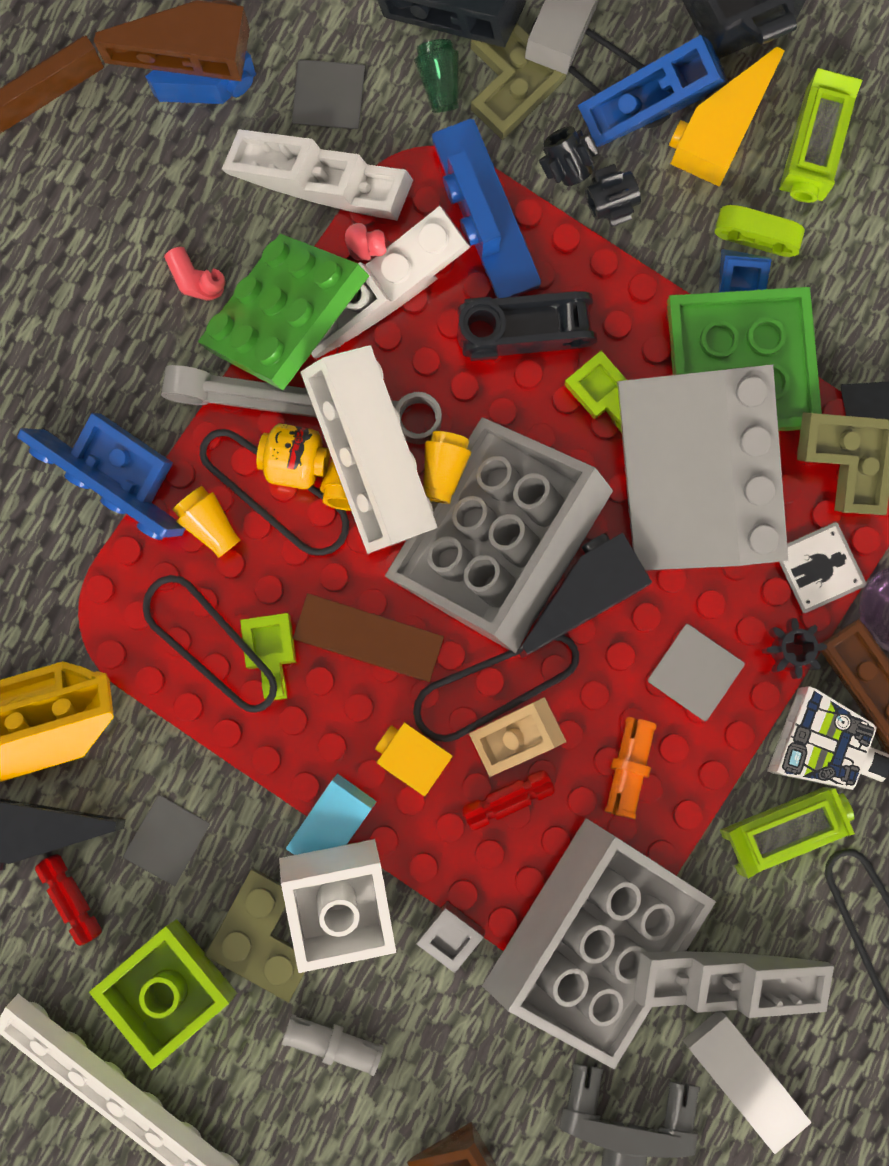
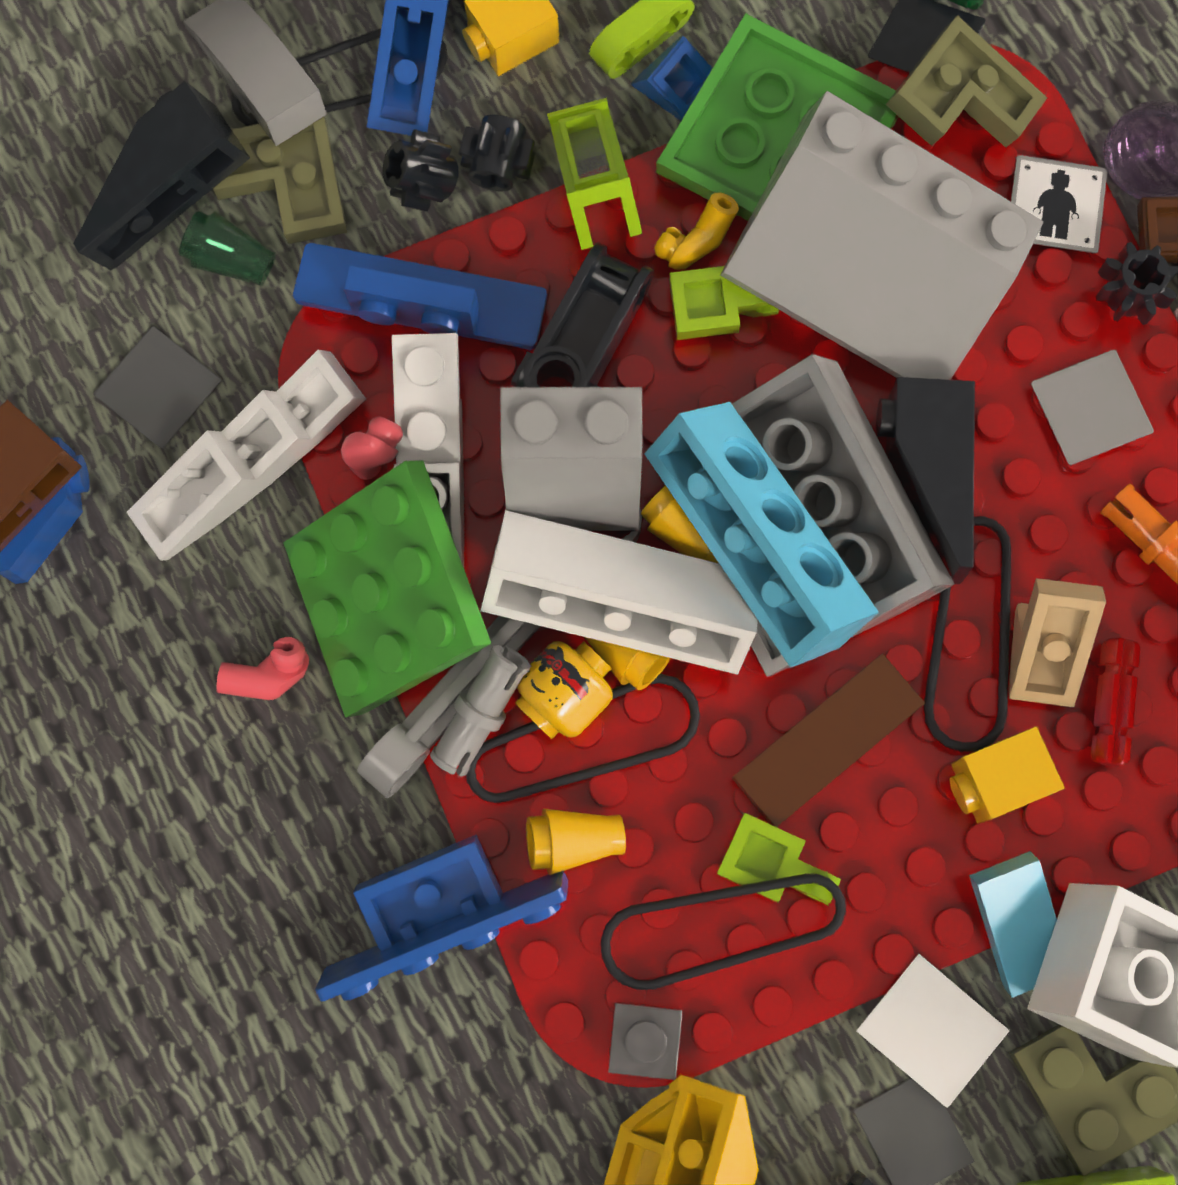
camera: 55 degrees left, 5 degrees down
(116, 642) = (645, 1041): none -> flat silver plate
(235, 812) = (933, 1030): none -> white sticker
(246, 414) = (480, 710): none -> light grey pin
(428, 360) = (573, 455): none -> light grey slope
(459, 508) = (760, 533): none -> medium azure brick
(637, 259) = (592, 164): none -> lime window
(641, 358) = (705, 237): none -> yellow arm

